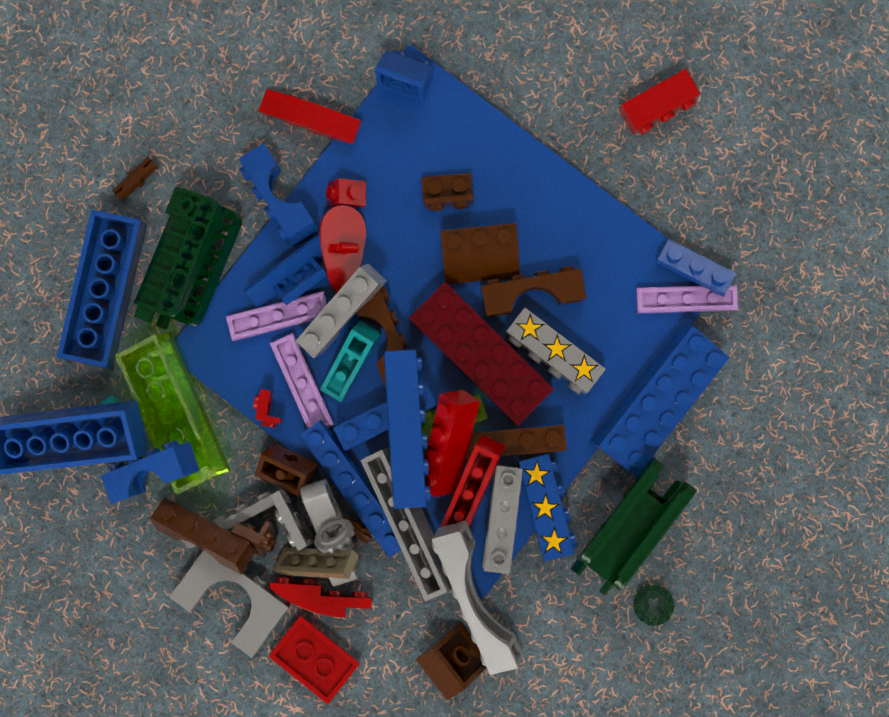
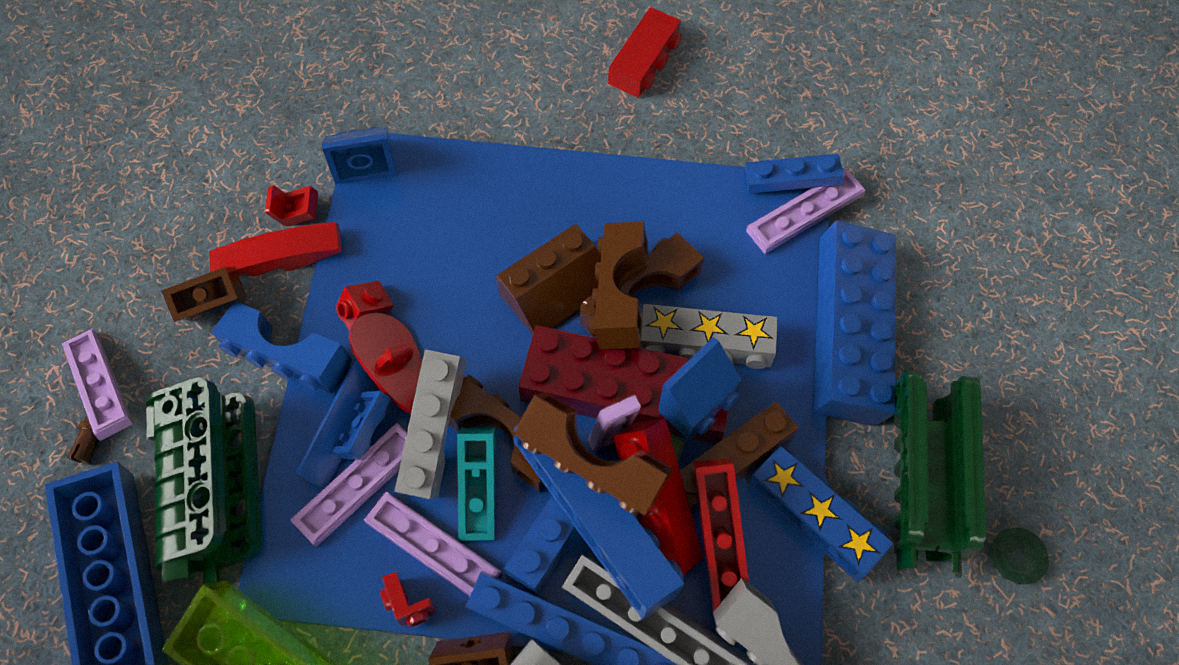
camera: 30 degrees left, 20 degrees down
(151, 150) = (97, 384): none -> lavender tile
(247, 125) = (204, 293): none -> reddish brown brick
(338, 85) = (292, 206): none -> red bracket
(403, 374) = (552, 430): none -> reddish brown arch
(447, 191) = (478, 243): reddish brown bracket -> none
(447, 384) = (613, 420): none -> lavender tile
(502, 519) = (784, 554): light grey fence -> none
(514, 396) = (700, 390): none -> blue slope
(532, 265) = (618, 316): none -> reddish brown arch

